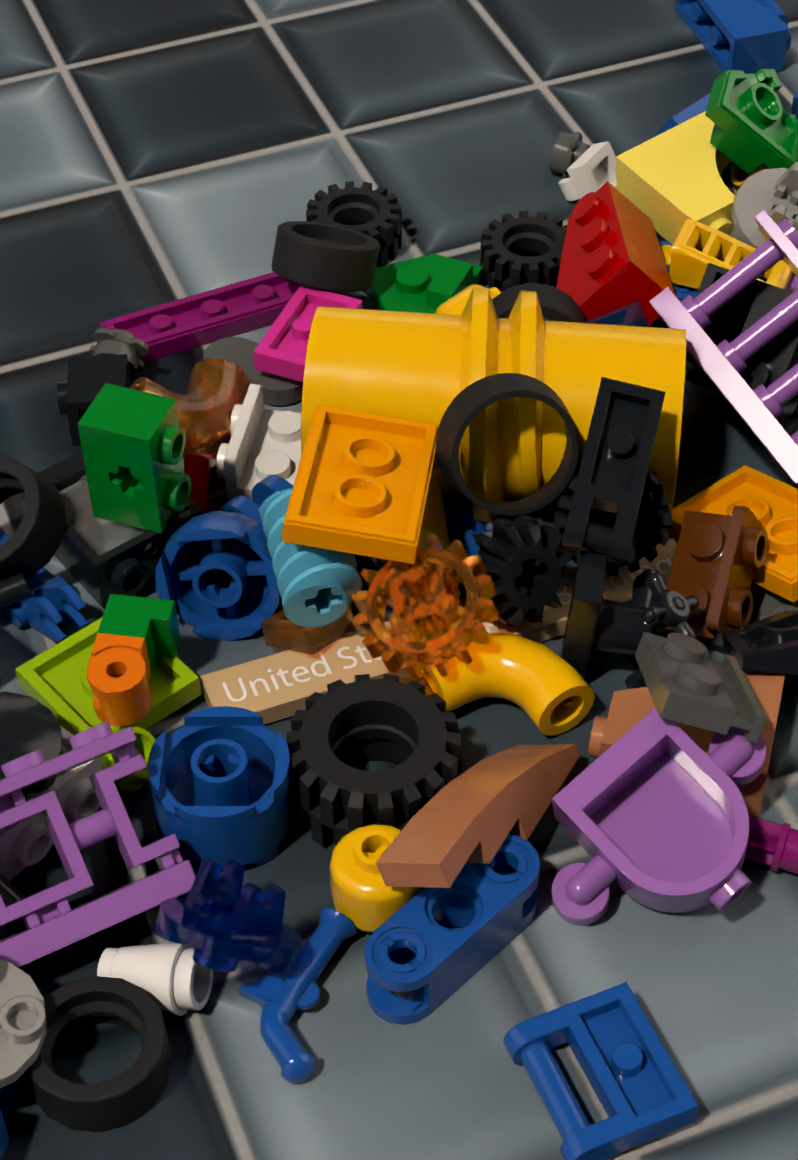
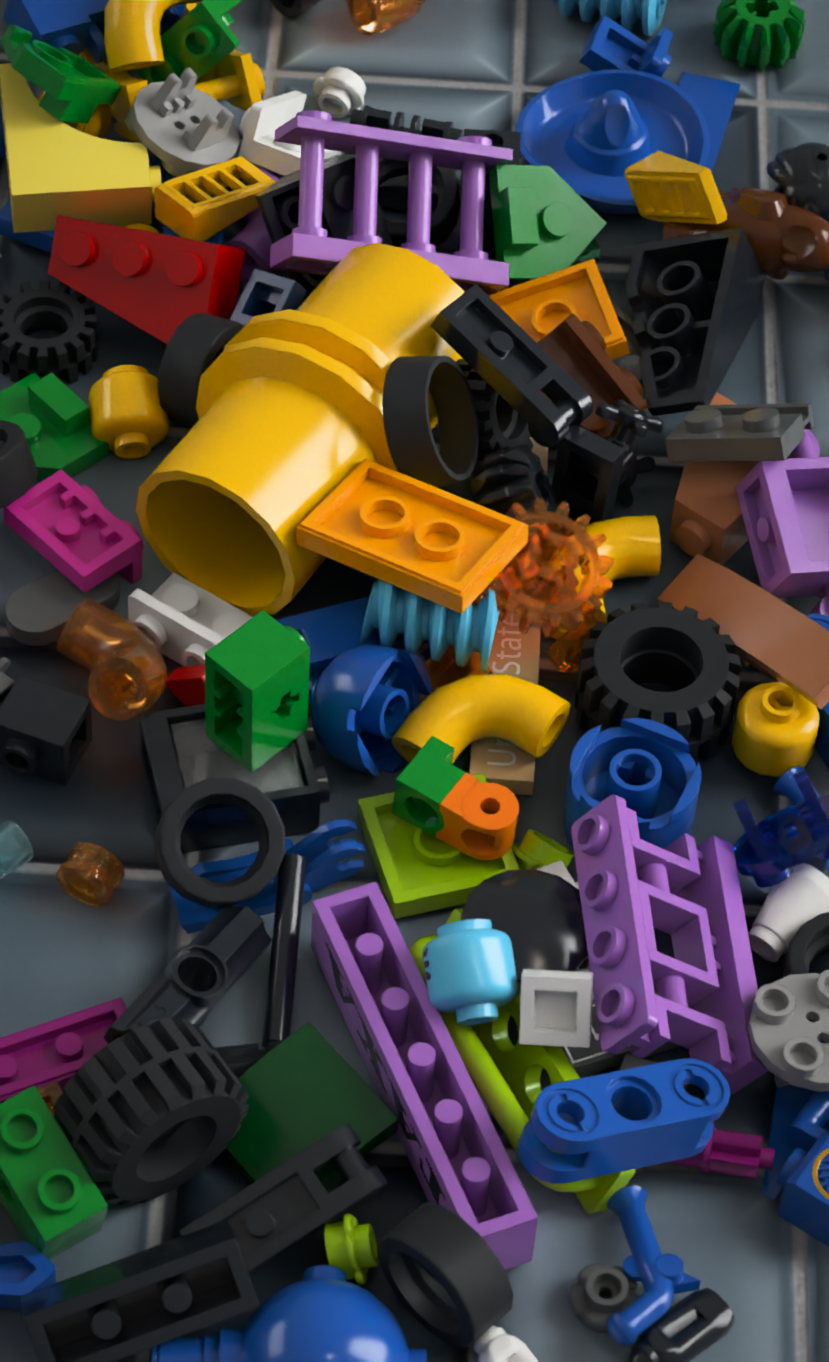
camera: 70 degrees left, 5 degrees up
(256, 638) = (485, 708): none -> yellow cylinder

